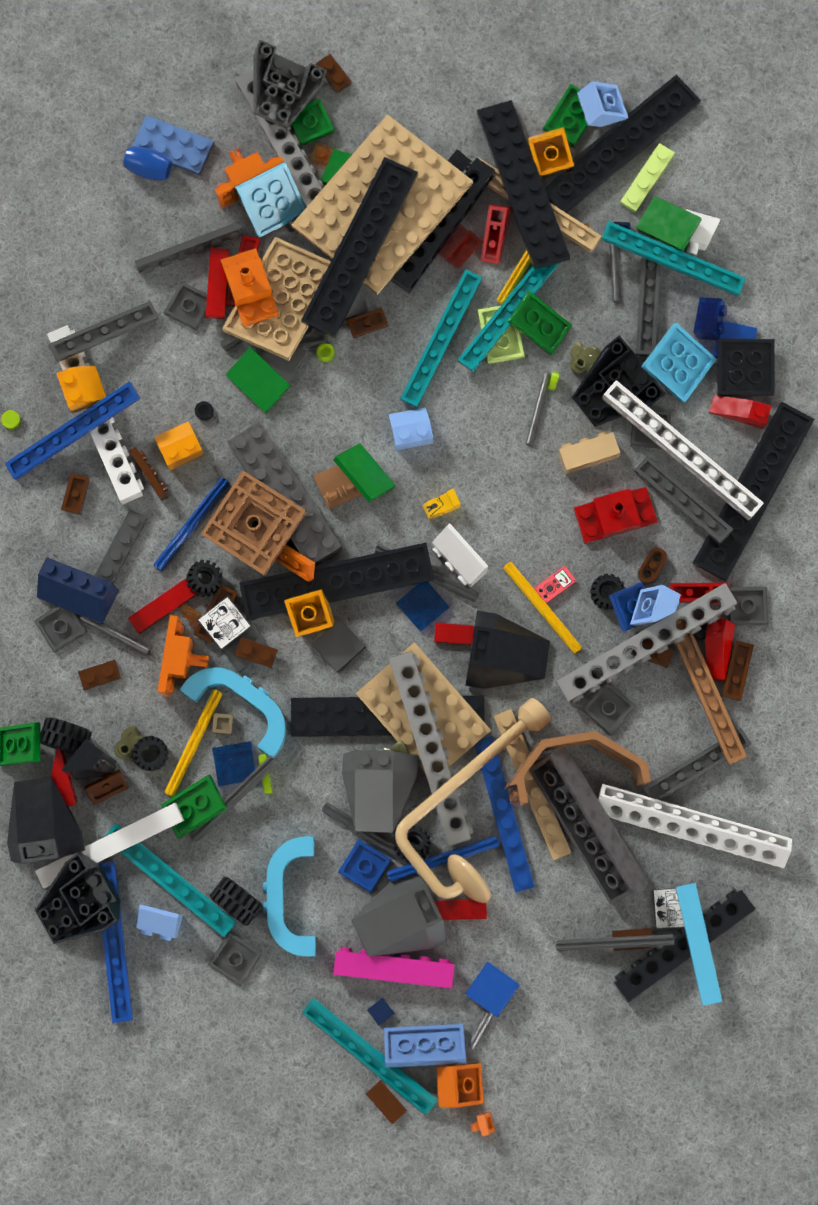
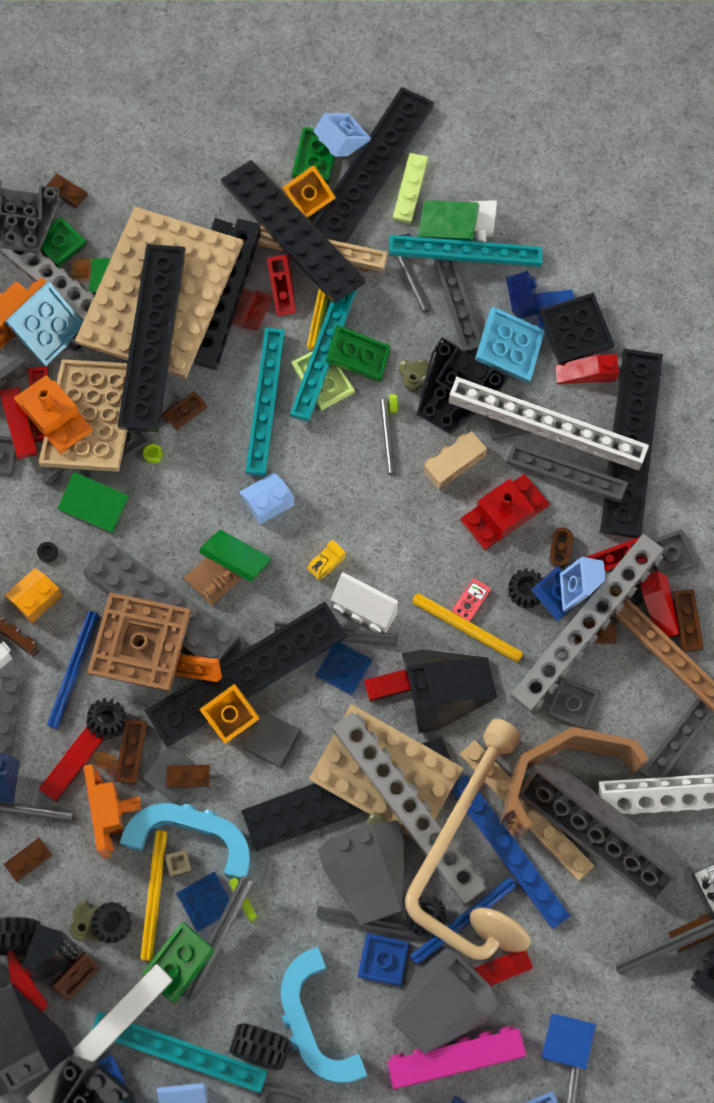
camera: 20 degrees left, 10 degrees down
(224, 623) = (143, 757): white tile -> none

